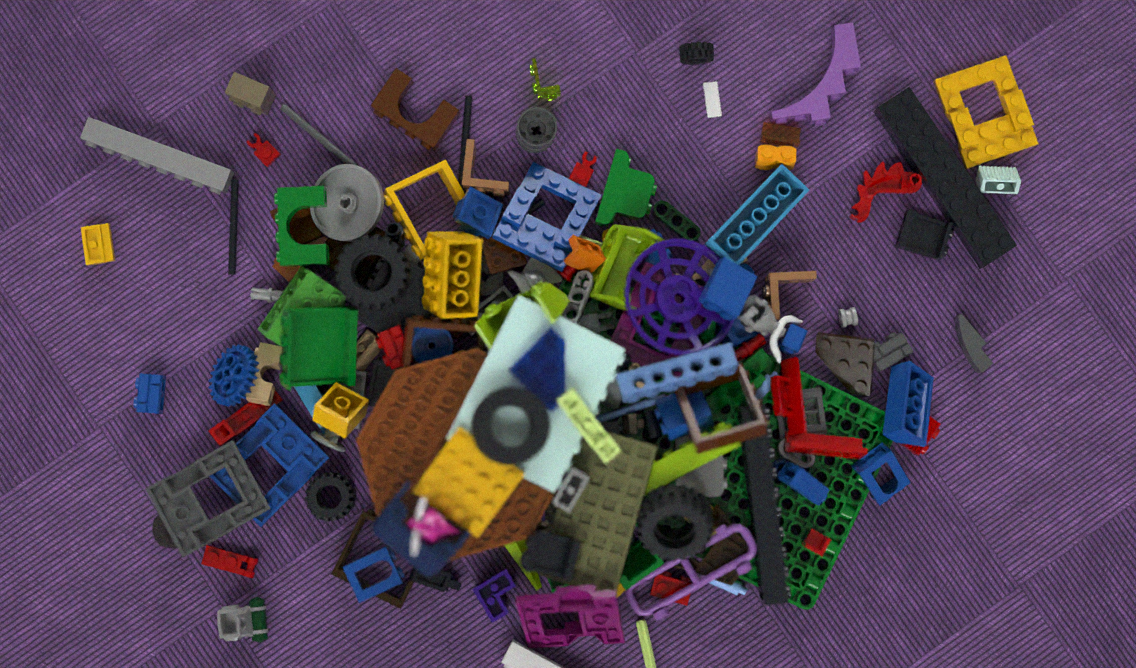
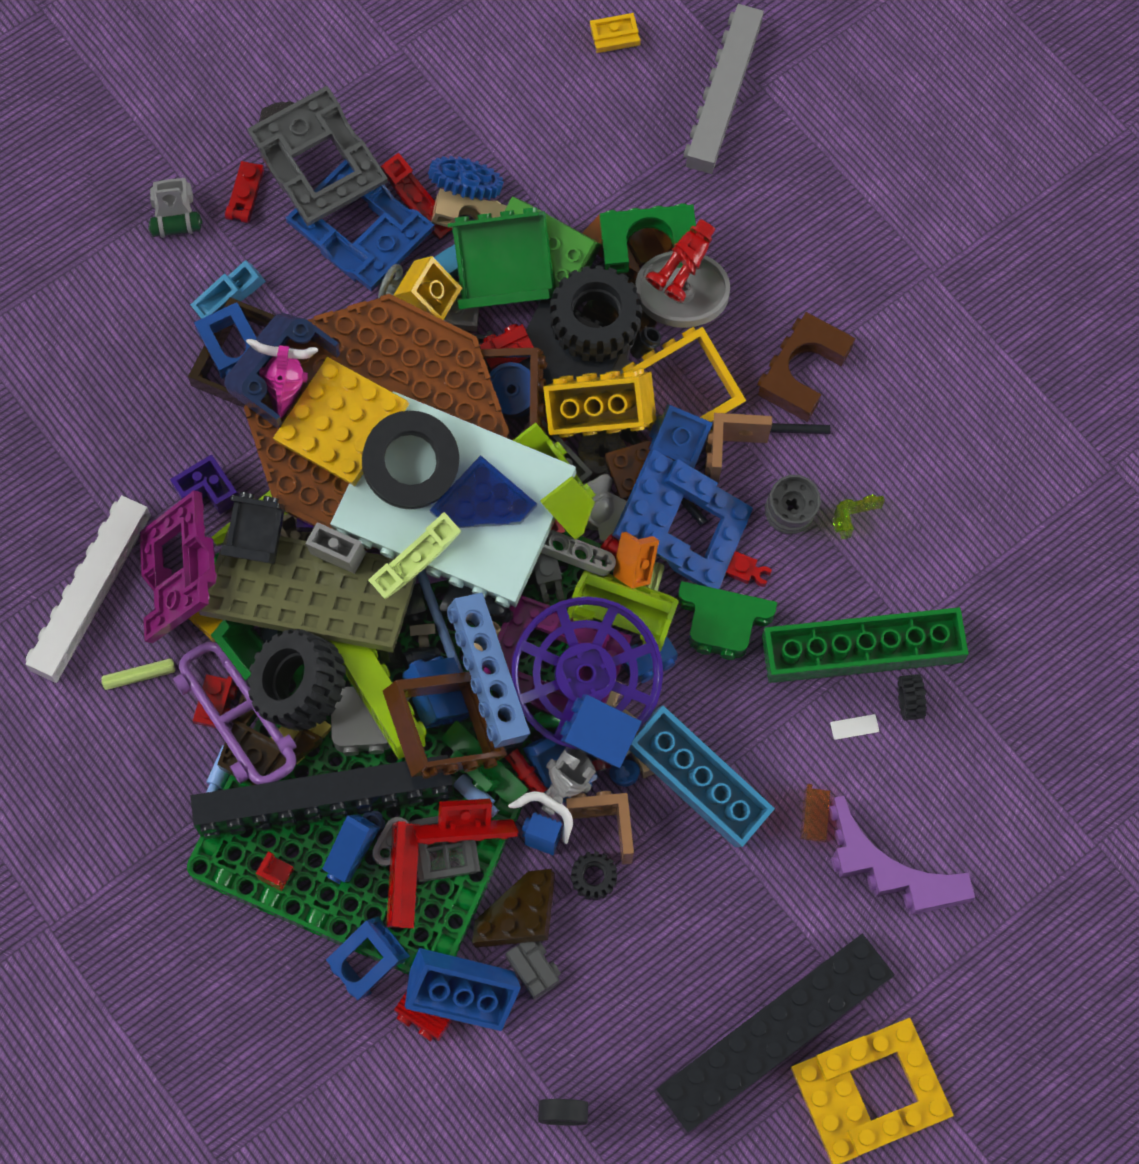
camera: 85 degrees right, 15 degrees down
(150, 393) = (441, 96): blue brick -> none
(233, 227) = (645, 175): black piece -> none
(250, 93) = (806, 178): dark tan brick -> none
(265, 152) = (739, 204): red plate -> none
(265, 294) = (566, 210): light grey pin -> none
(314, 501) = (322, 277): black tyre -> none
(318, 136) = (763, 261): dark grey piece -> none
(320, 575) = (237, 285): none -> dark azure slope
(323, 192) = (689, 252): none -> red piece
(366, 350) = (496, 320): tan slope -> none
(440, 581) = (224, 416): black hinge -> none
(653, 85) = (864, 645): none -> green brick
(672, 213) = (694, 674): dark green beam -> none
(771, 157) = (783, 797): light orange brick -> none
(832, 303) = (594, 860): none -> black tyre
(848, 317) = (576, 911): light grey wheel -> none
(883, 181) = (763, 951): red animal -> none
(924, 235) = (694, 1010): black panel -> none
(971, 344) = (547, 1080): dark grey slope -> none
(997, 334) = (563, 1112): none -> black tyre
(998, 180) = (777, 1107): light aqua brick -> none

